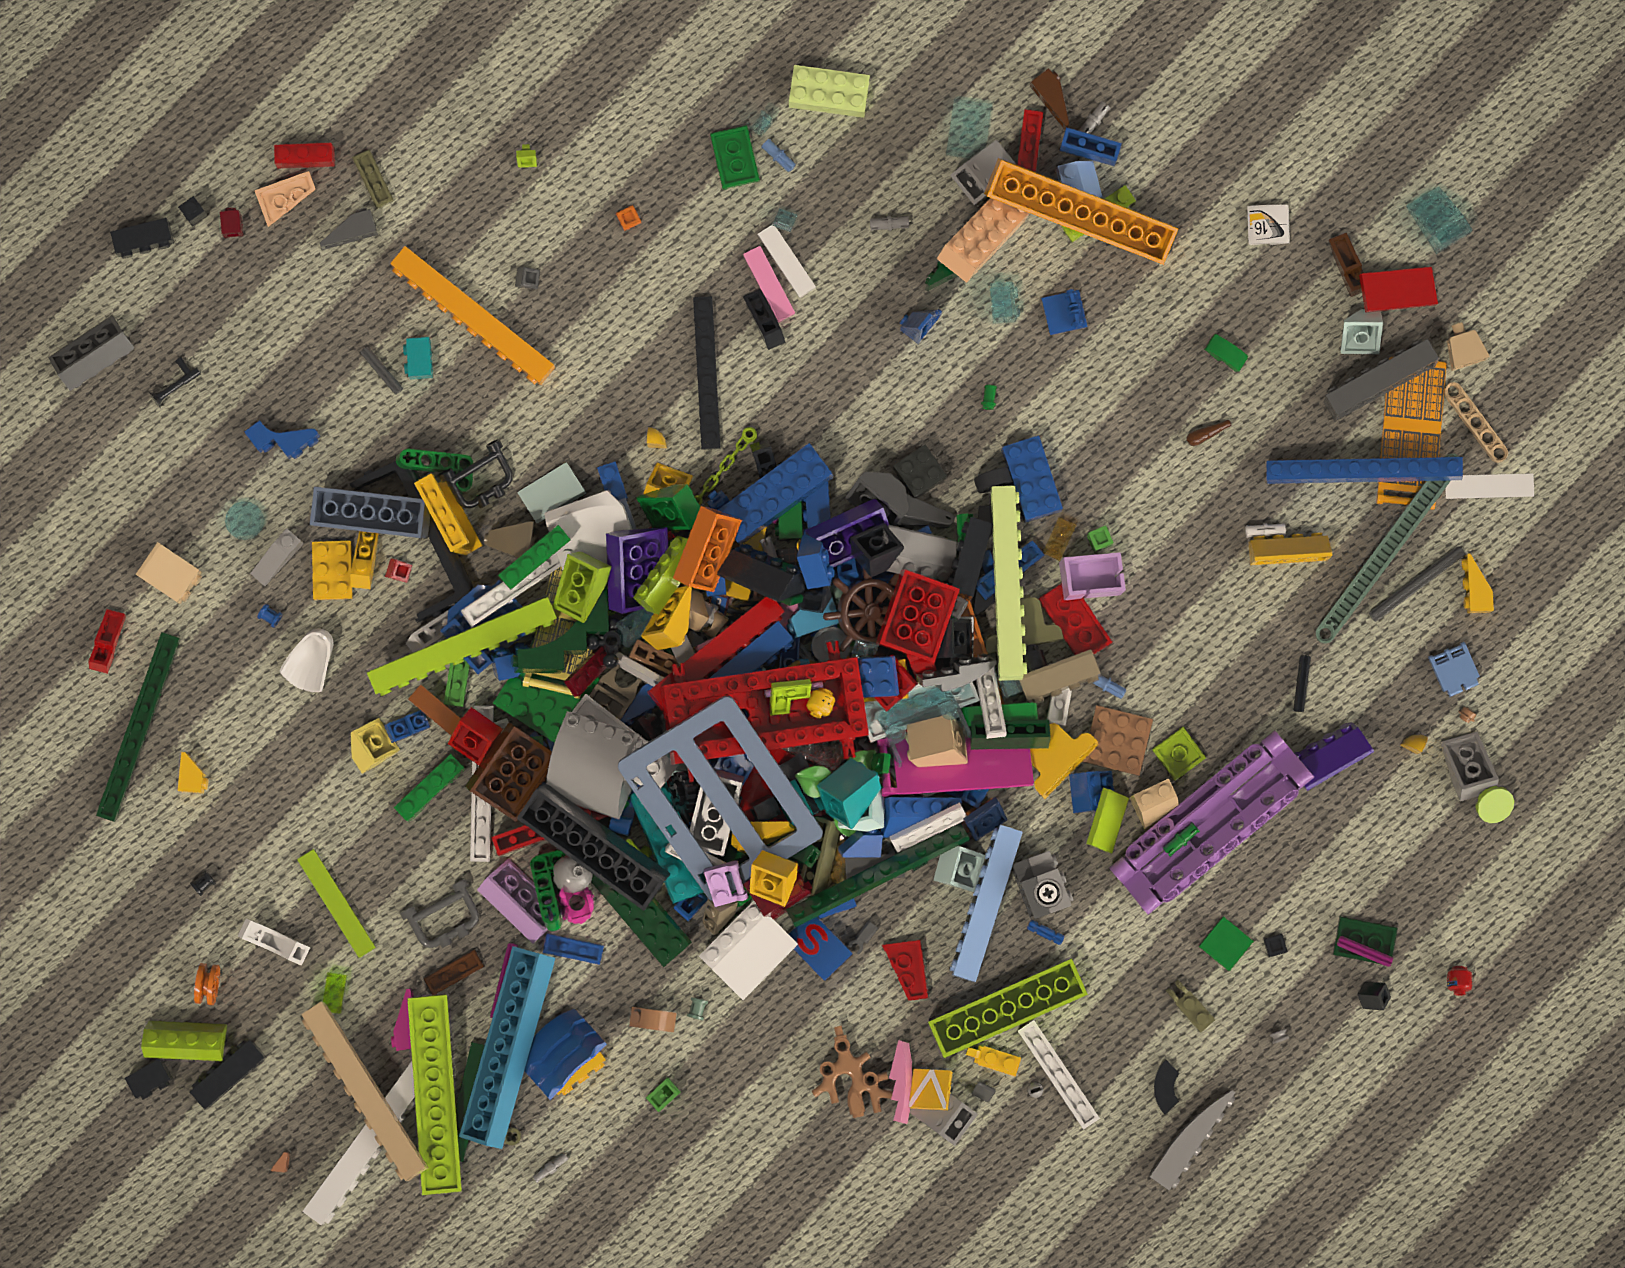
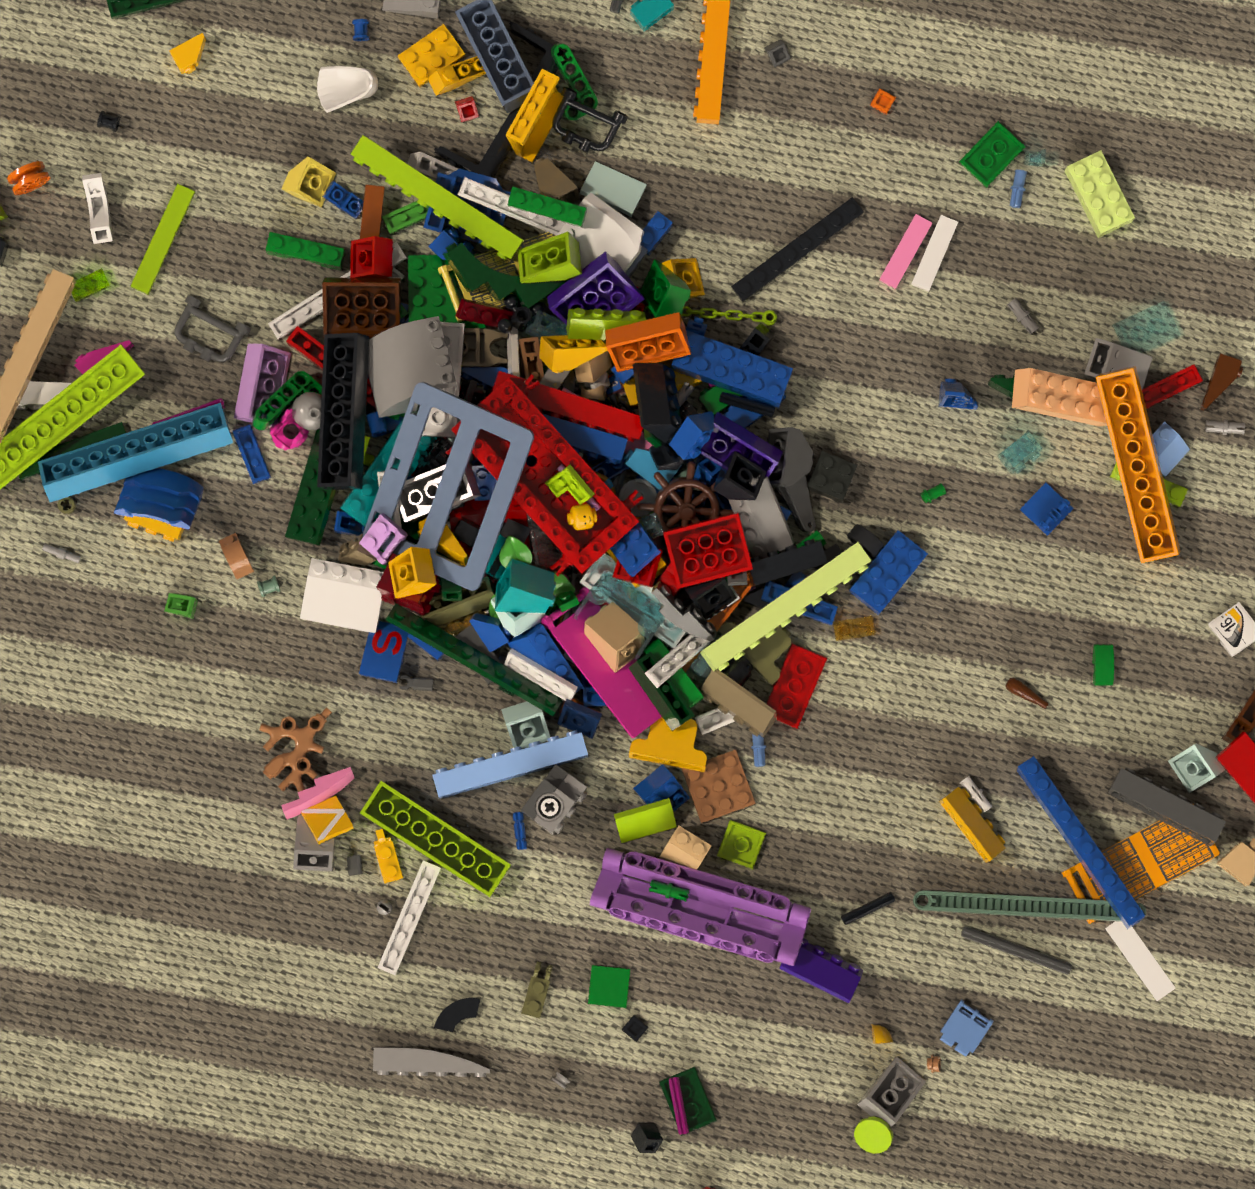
camera: 55 degrees right, 0 degrees up
(453, 972) = (168, 370): reddish brown tile -> none
(655, 439) = (714, 243): yellow brick -> none
(764, 319) = (873, 266): black slope -> none
(785, 220) = (967, 229): clear light blue tile -> none
(812, 502) = (747, 404): none -> black axle
(909, 967) = (416, 738): red wing -> none
(1090, 147) = (1199, 438): blue brick -> none
(1092, 576) = (840, 674): lavender piece -> none
(1100, 539) = (875, 661): bright green brick -> none
(1478, 592) = (1044, 1005): yellow slope -> none
(1484, 427) = (1186, 901): tan beam -> none

